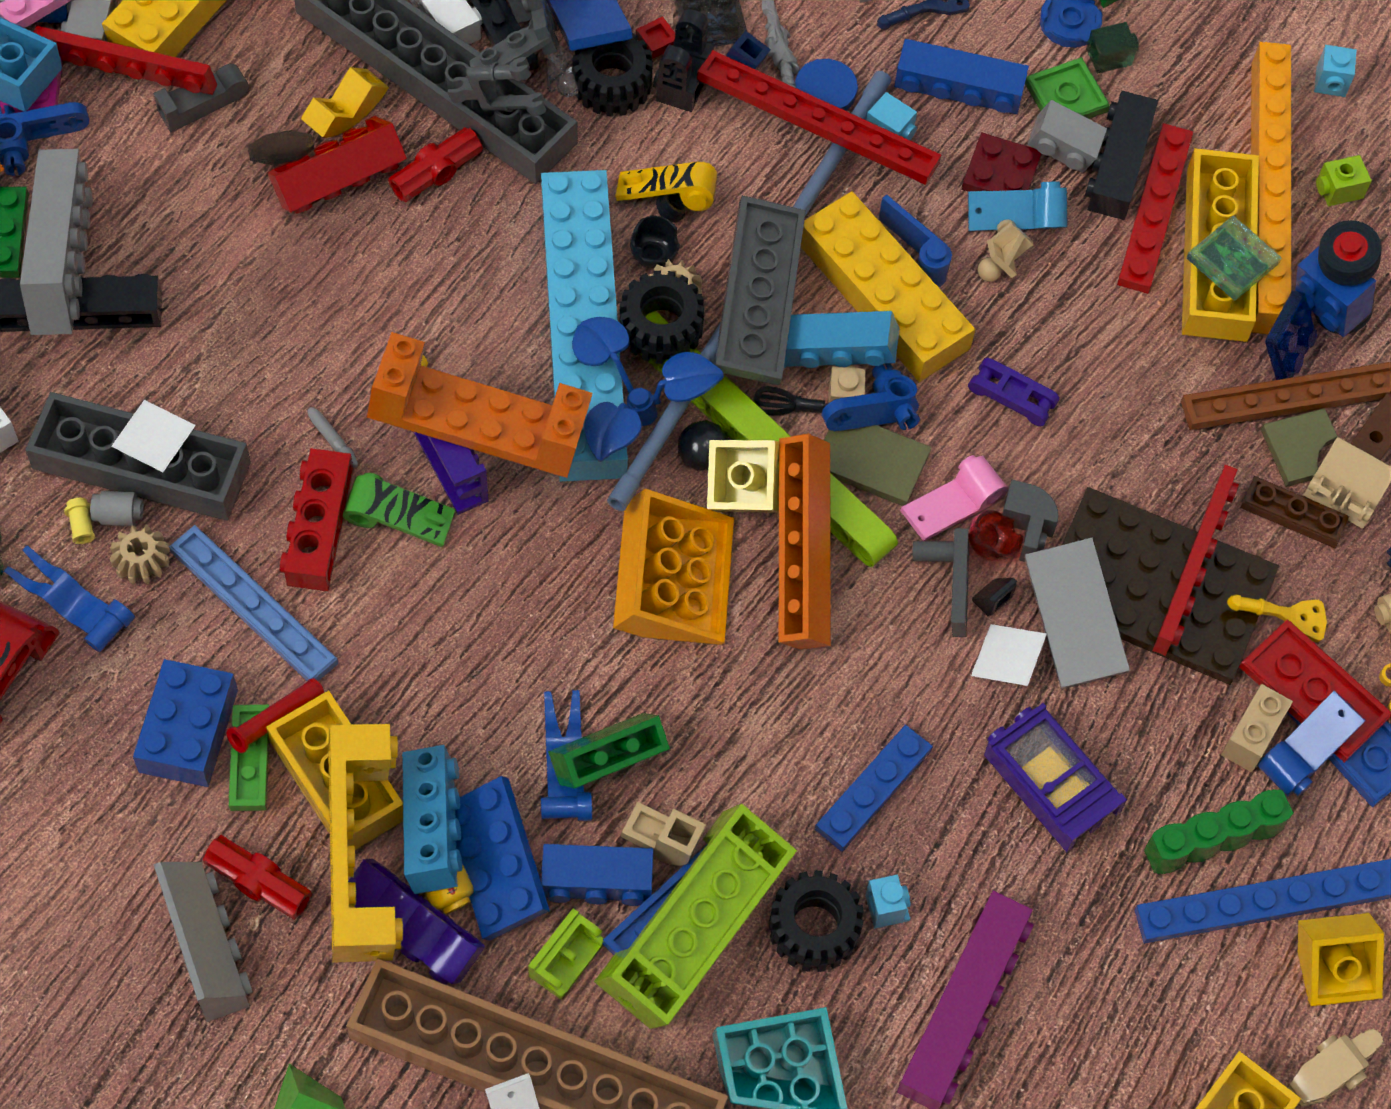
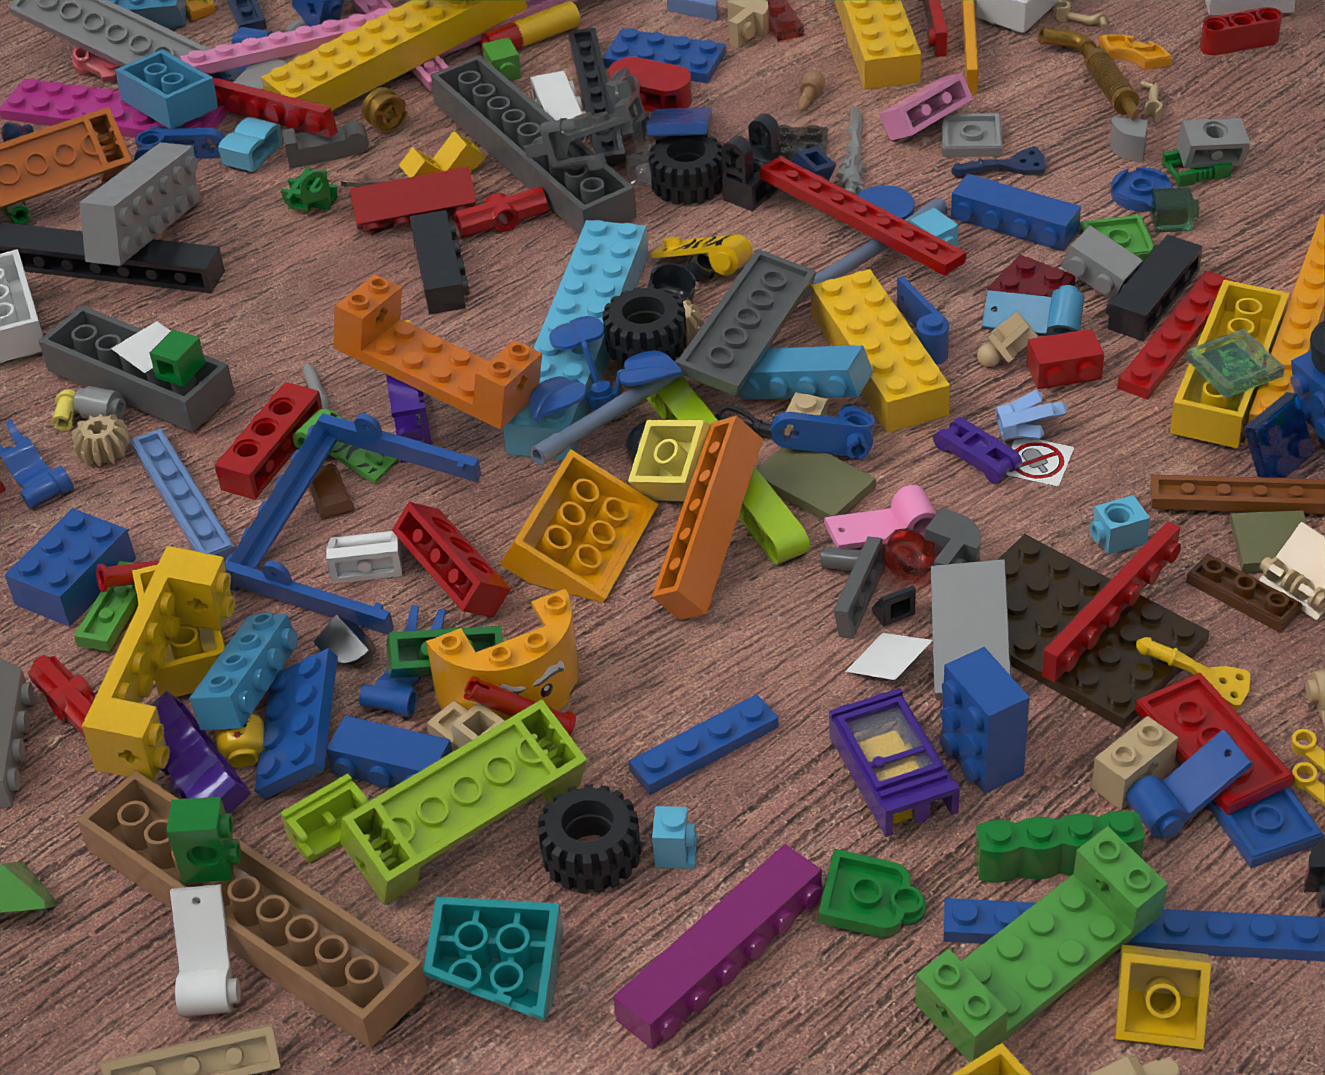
camera: 25 degrees right, 20 degrees down
(117, 111) = (250, 144): none -> medium azure brick
(197, 452) = (177, 357): none -> green brick
(219, 171) = (310, 191): none -> green piece
(251, 39) = (384, 110): none -> pearl gold wheel
(375, 587) = (289, 489): none -> blue piece
(397, 247) = (440, 262): none -> black brick
(401, 568) = (330, 492): none -> reddish brown tile
(479, 652) = (364, 557): none -> white tile
(495, 1033) = (202, 840): none -> green brick
(501, 752) = (345, 640): none -> black brick
(567, 635) = (451, 560): none -> red brick
(694, 771) = (531, 665): none -> light orange cylinder
(707, 800) = (509, 702): none -> red pin
(1048, 346) = (1021, 417): none -> light blue rock
(1064, 264) = (1065, 359): none -> red brick
(1071, 916) = (869, 895): none -> green plate
(1075, 386) = (1041, 460): none -> sticker
(1128, 724) = (984, 720): none -> blue brick
(1175, 448) = (1120, 524): none -> medium azure brick
(1239, 943) = (1043, 949): none -> bright green plate

